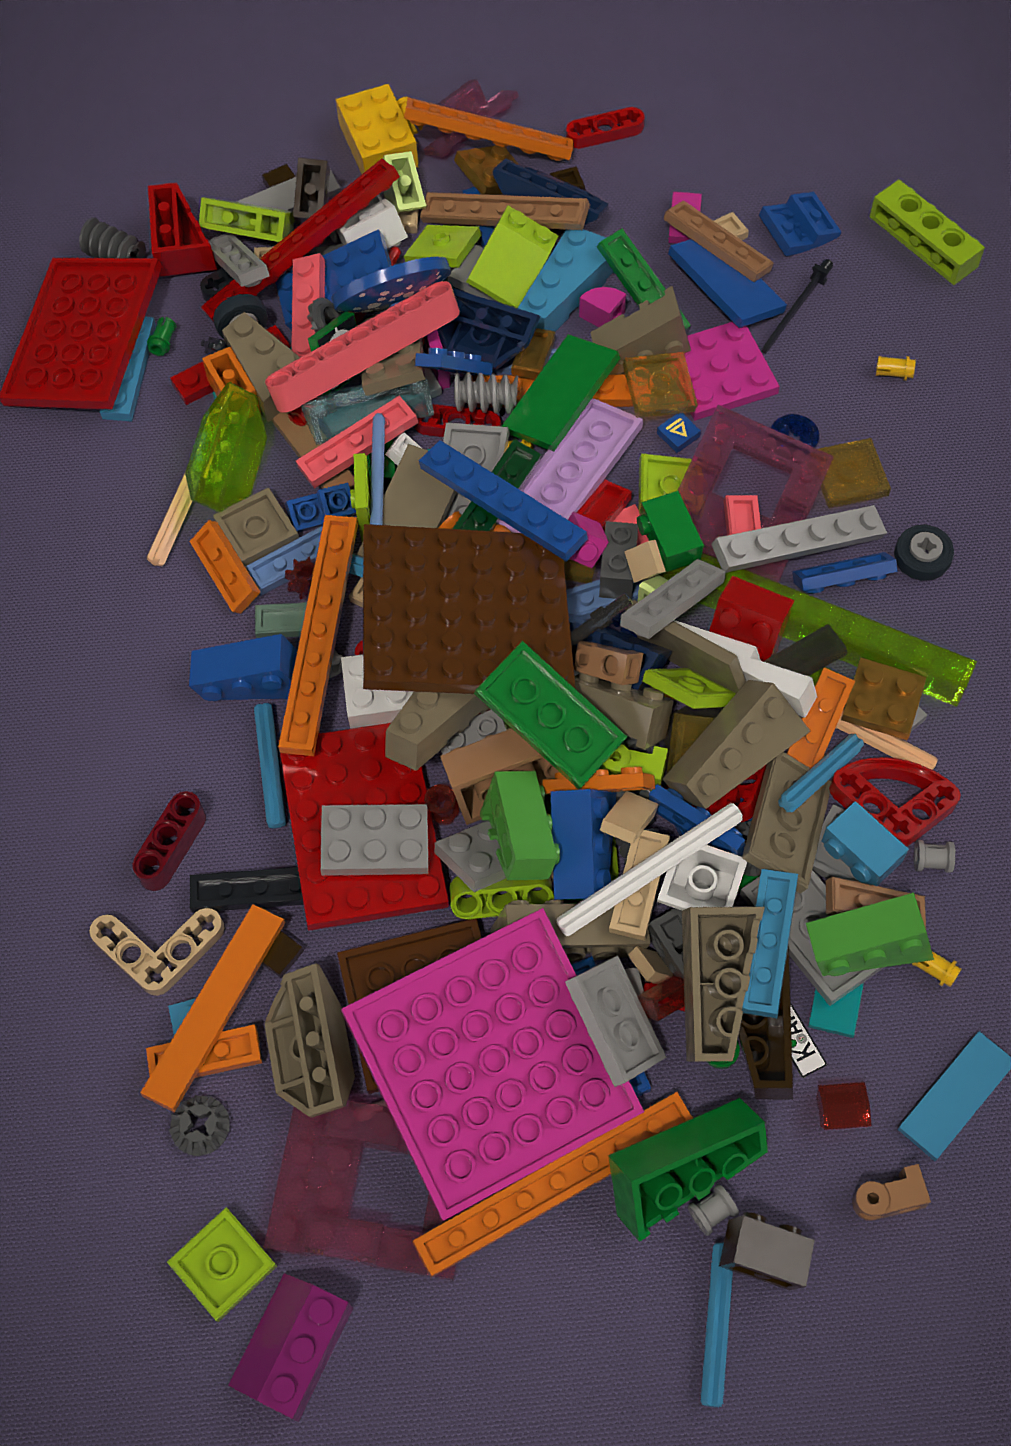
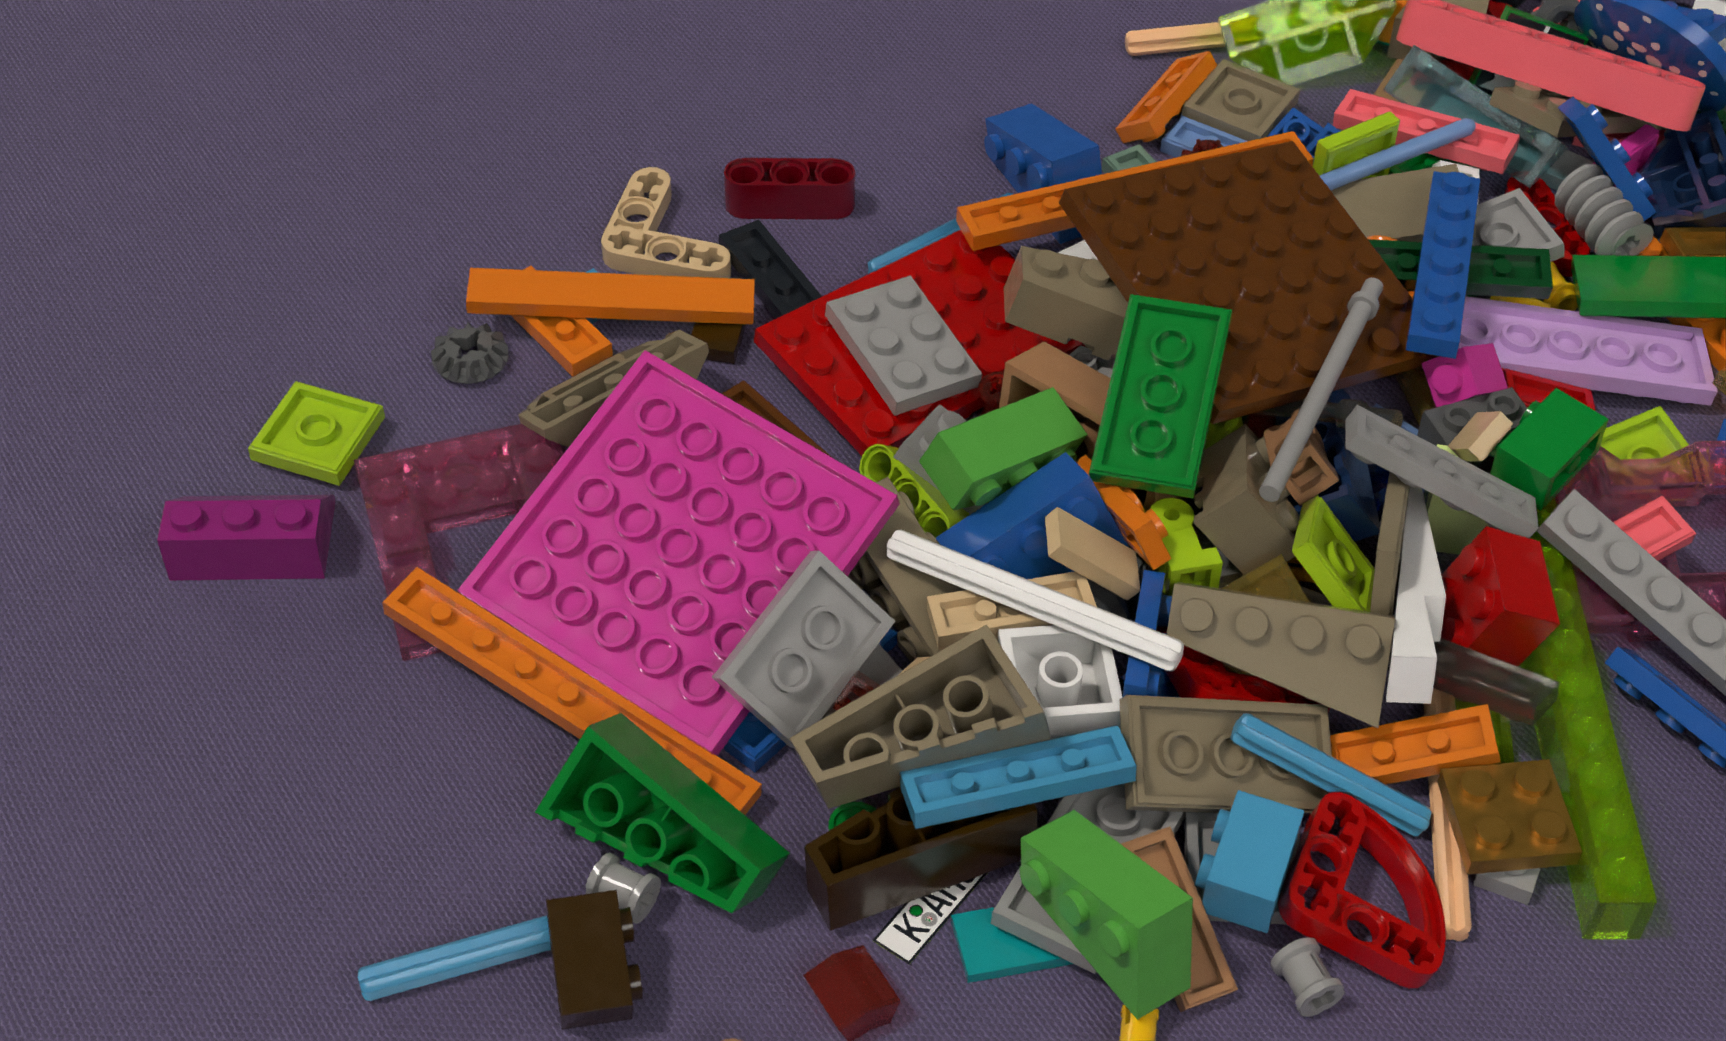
camera: 60 degrees right, 15 degrees down
(528, 565) = (1362, 308): none -> light grey bar

